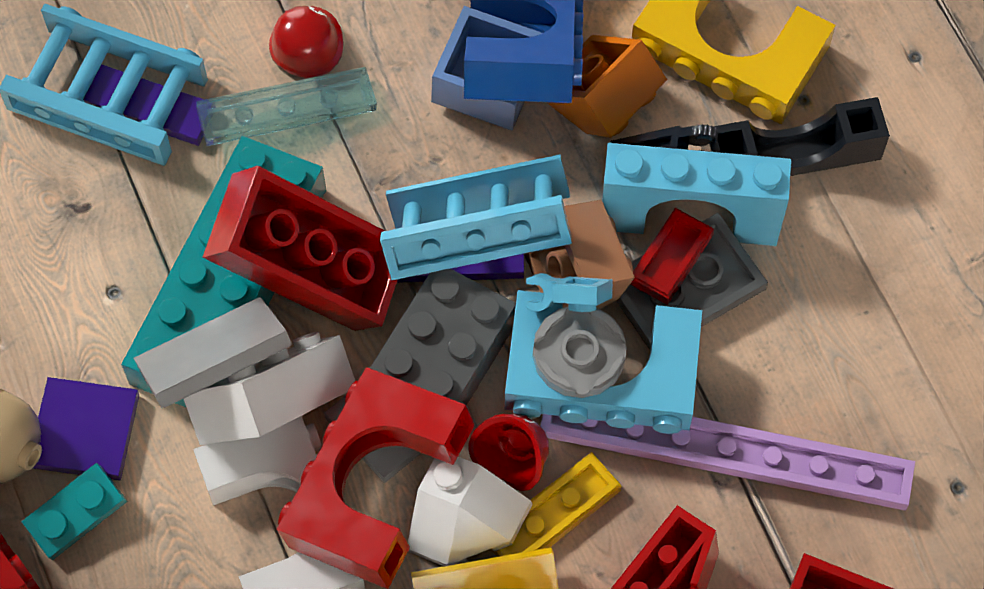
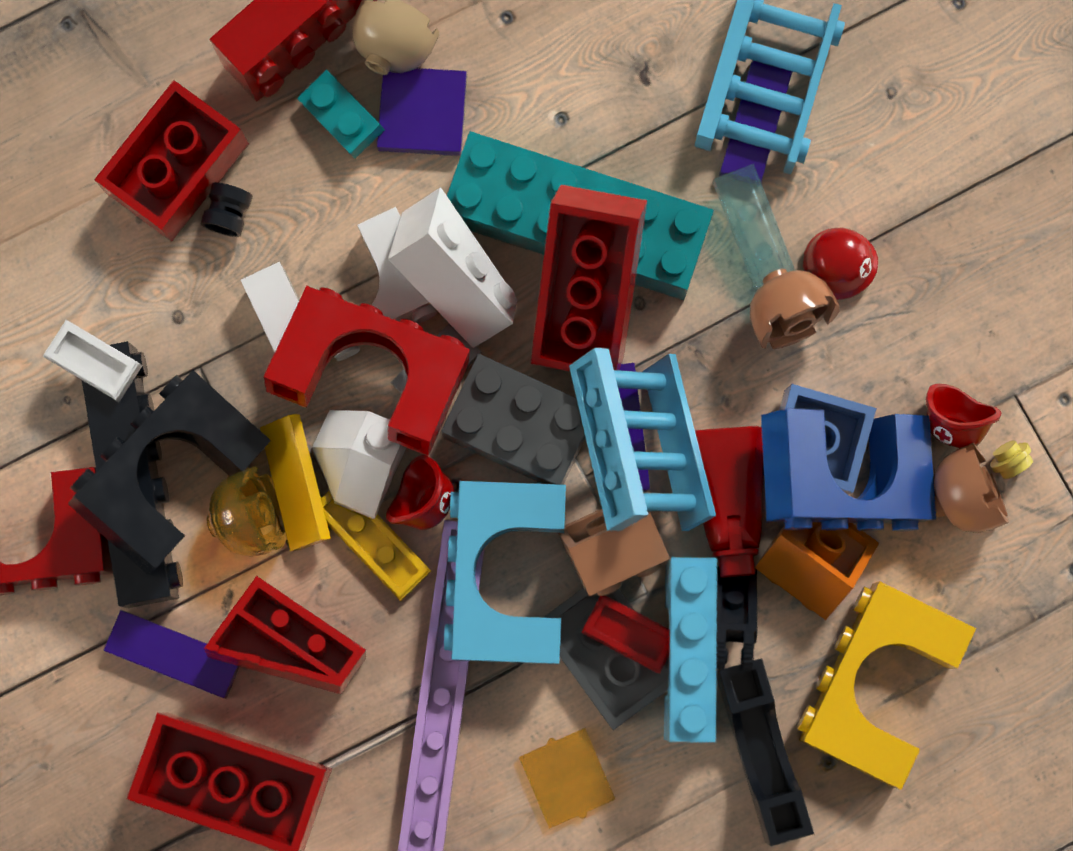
camera: 90 degrees right, 15 degrees up
(212, 352) = (469, 206): light grey tile -> none
(350, 75) = (790, 306): none -> nougat cylinder
(505, 142) = (735, 481): none -> red piece
(578, 292) = (555, 537): medium azure plate -> none
(579, 352) = (504, 547): light grey tile -> none
(812, 338) = (567, 778): none -> clear yellow piece

